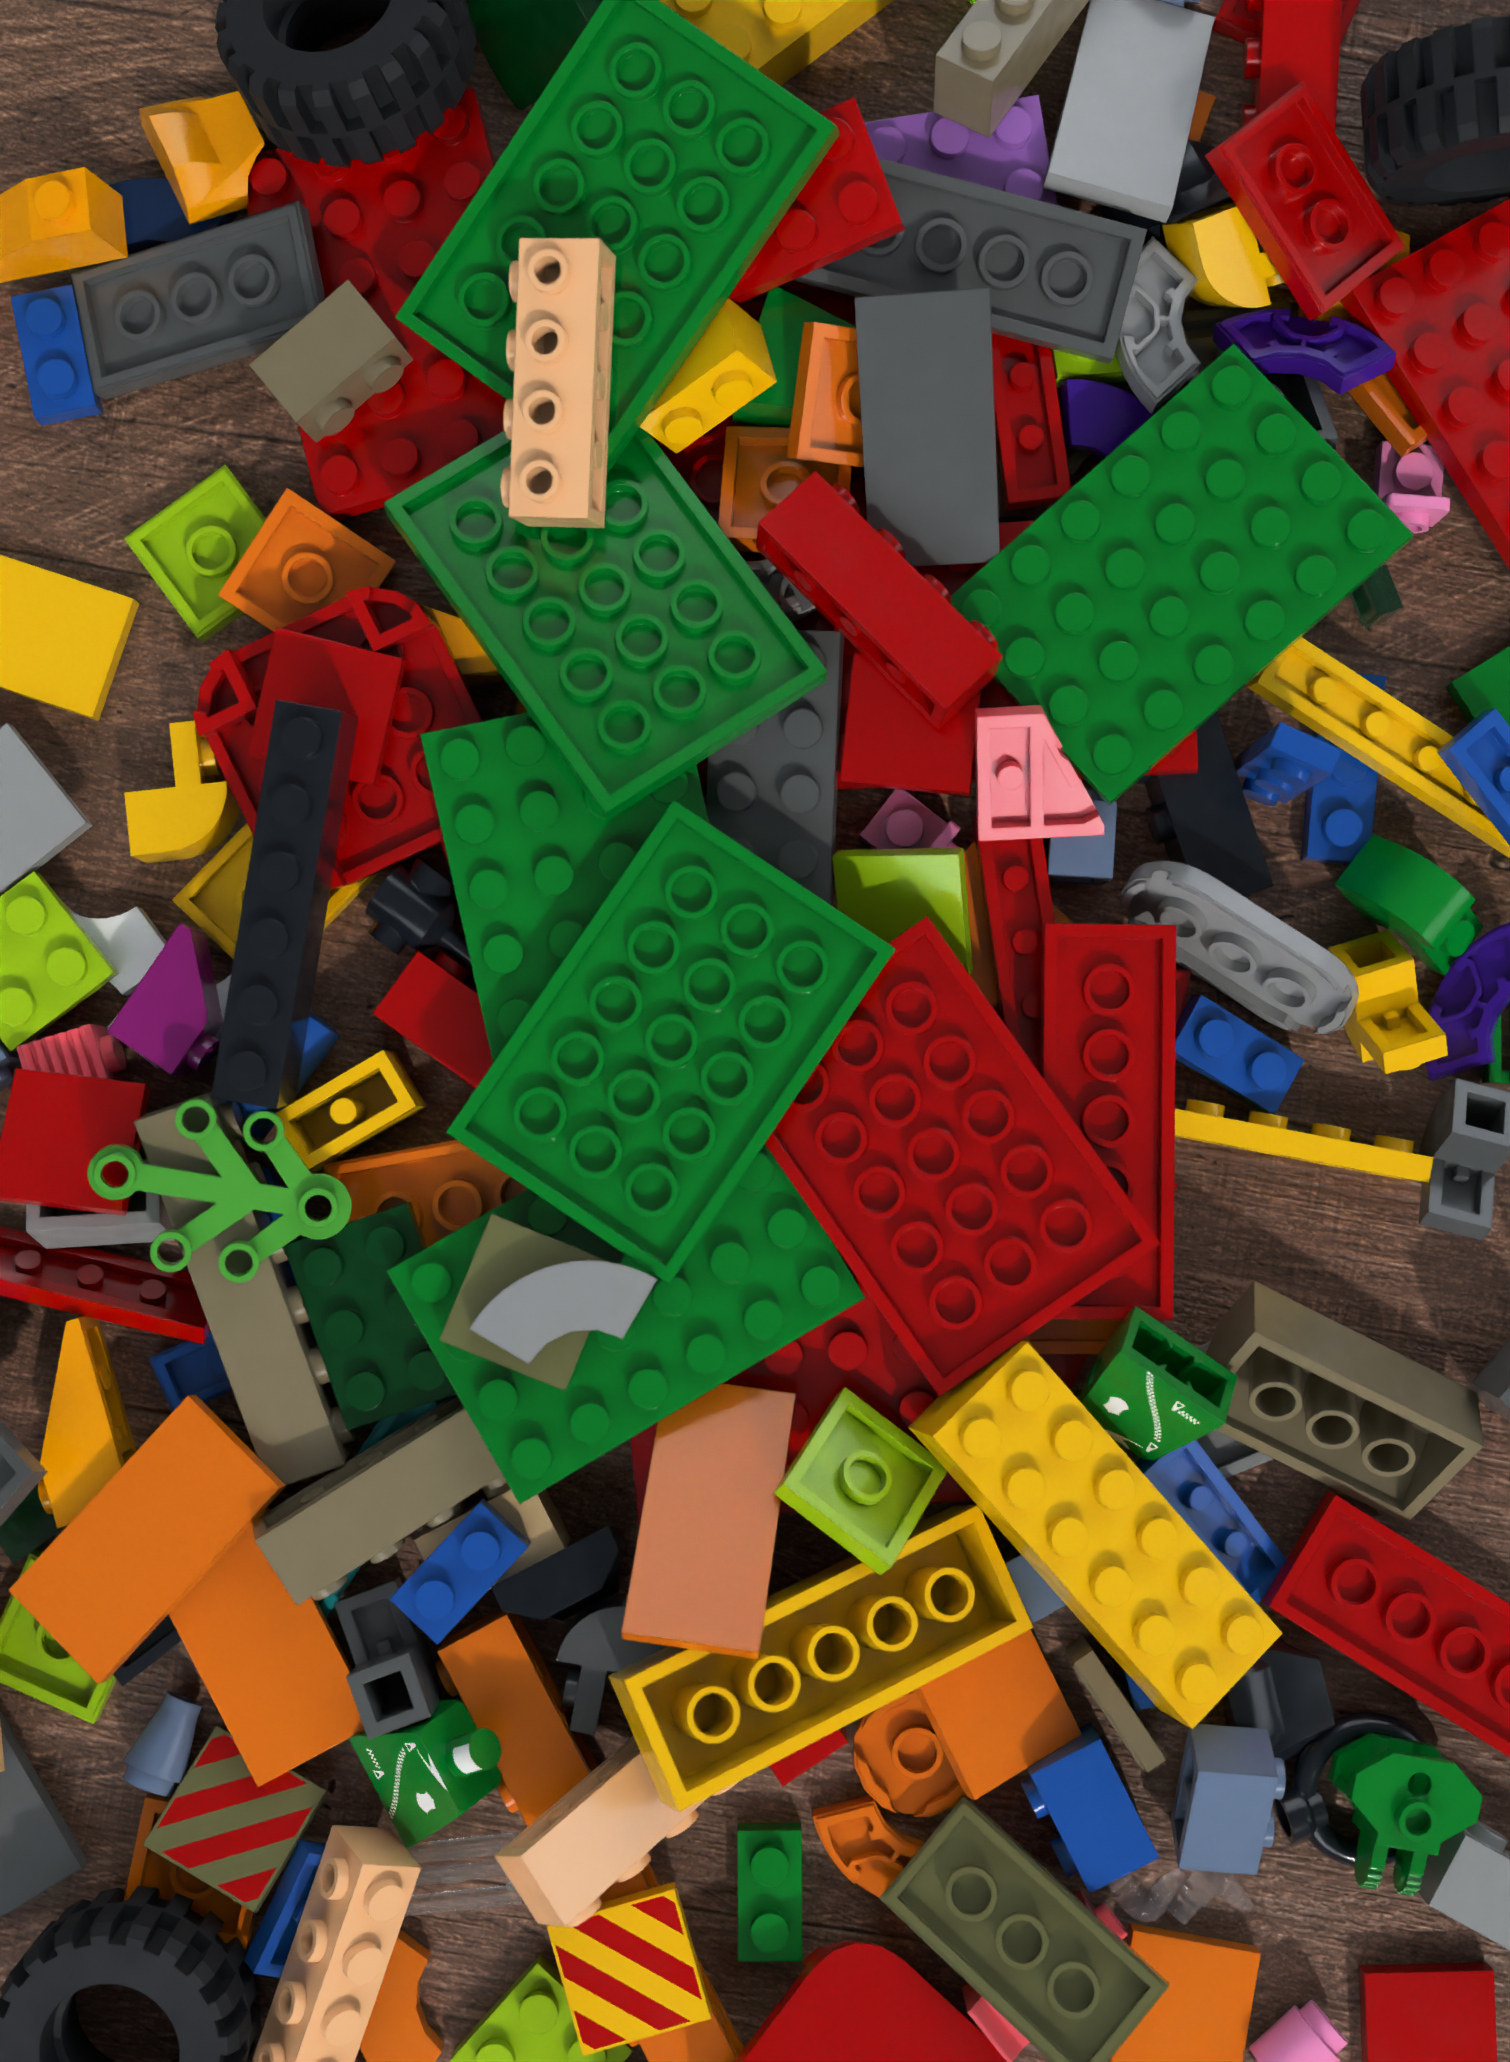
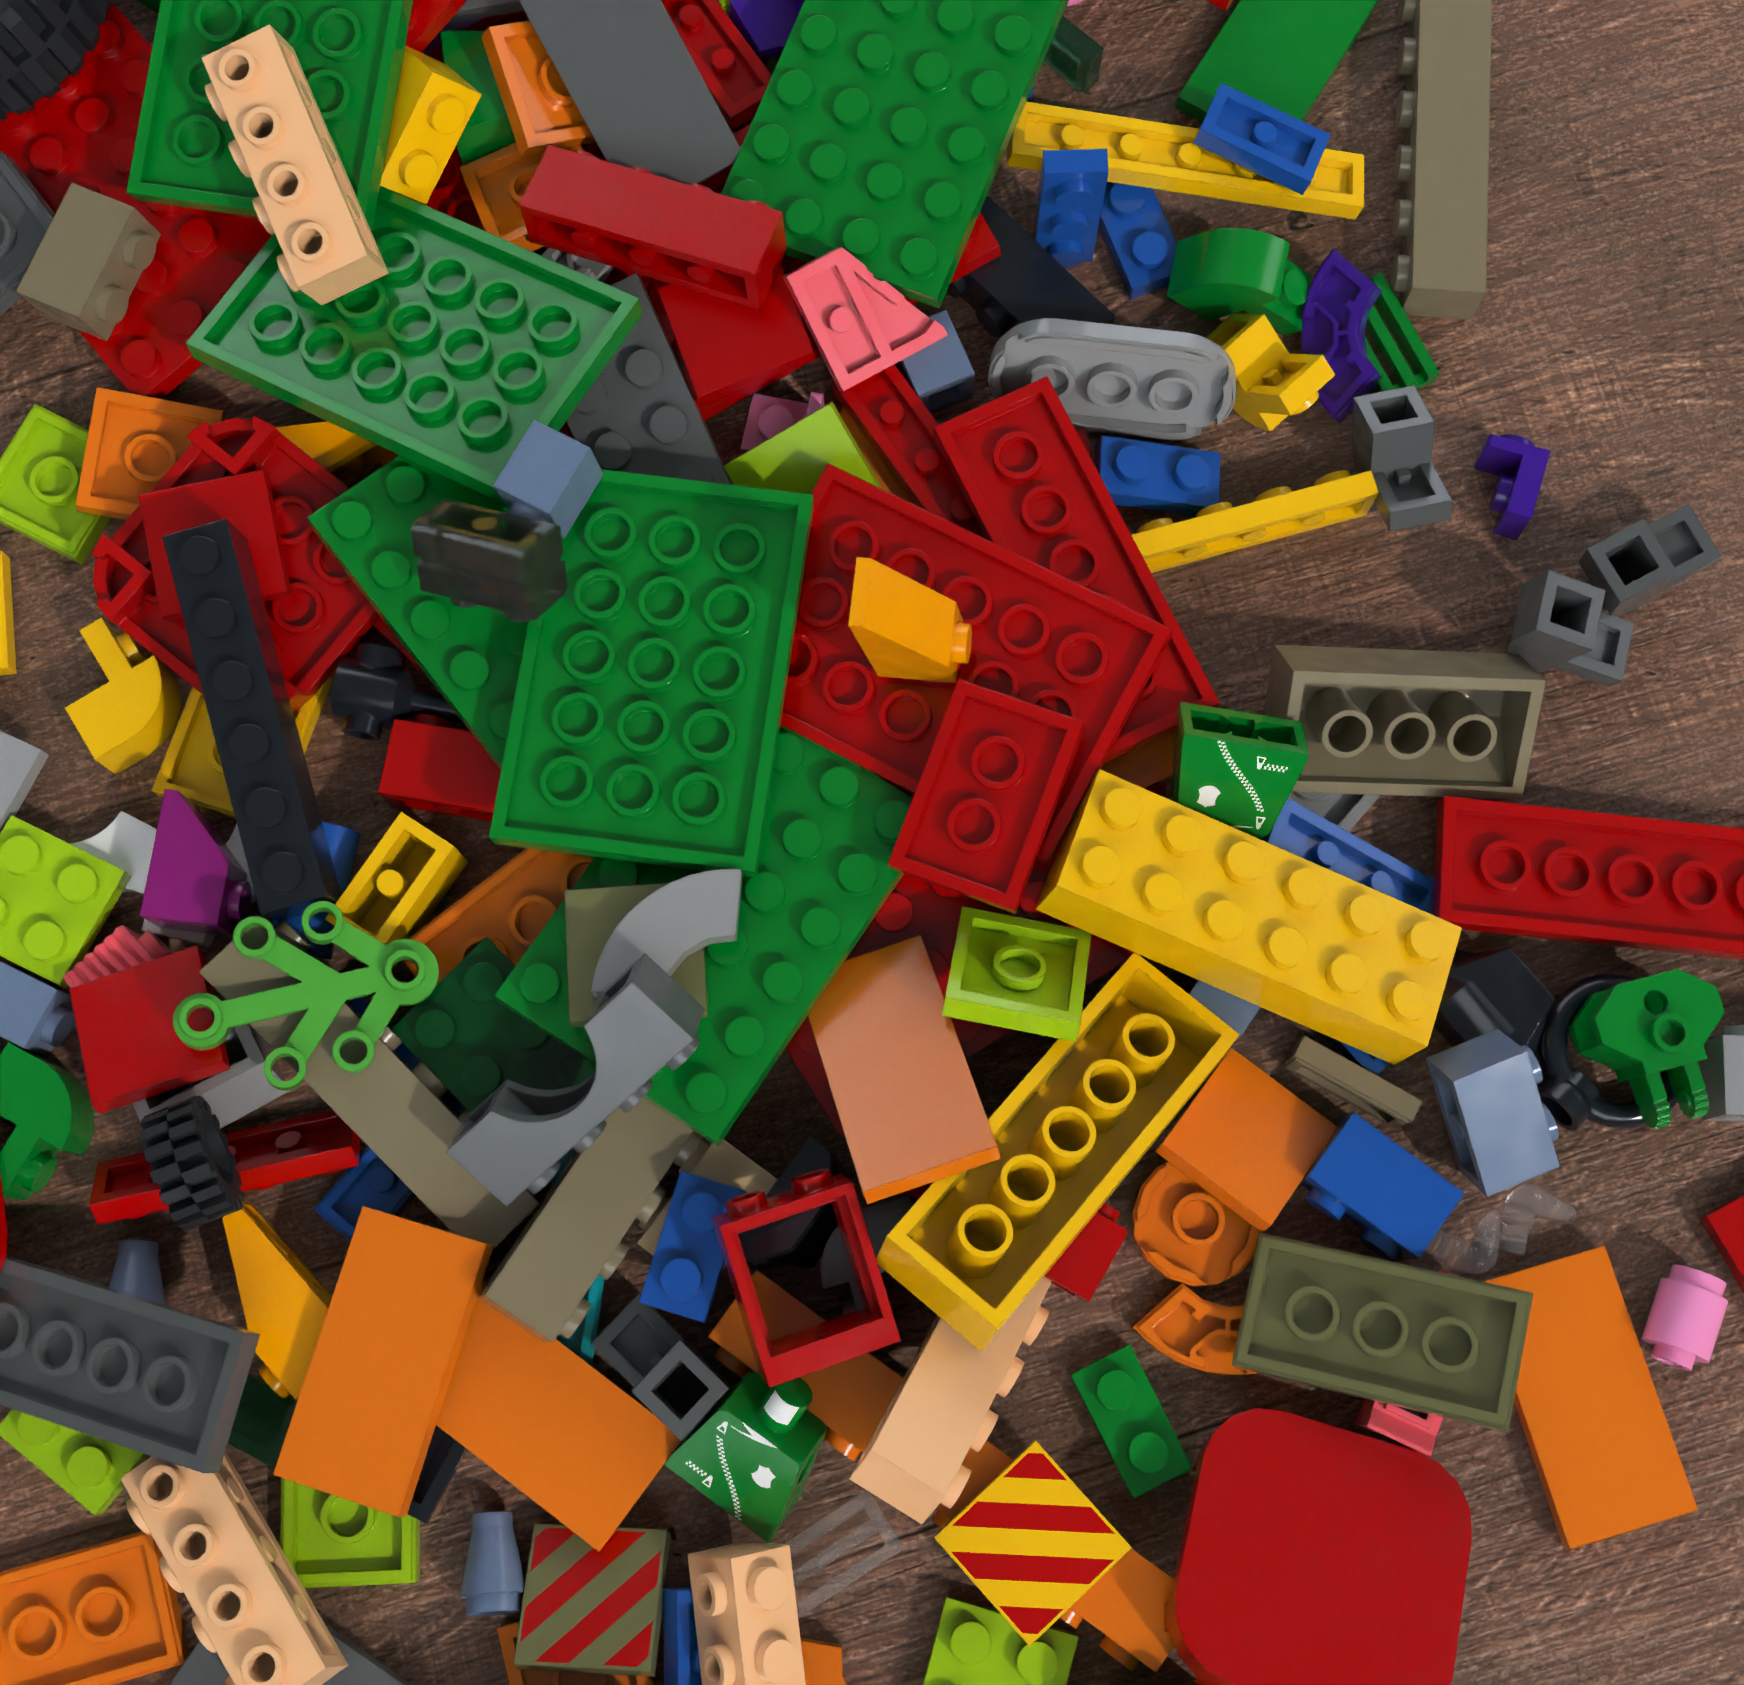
camera: 25 degrees left, 10 degrees down
(53, 1290) = (191, 1163): none -> black tyre
(355, 1412) = (523, 1131): none -> dark grey arch
(532, 1718) = (831, 1340): none -> red window
(565, 875) = (490, 559): none -> clear smoke brick
(653, 823) = (548, 477): none -> sand blue brick
(913, 1315) = (987, 795): none -> red plate
(917, 1137) = (906, 625): none -> light orange slope

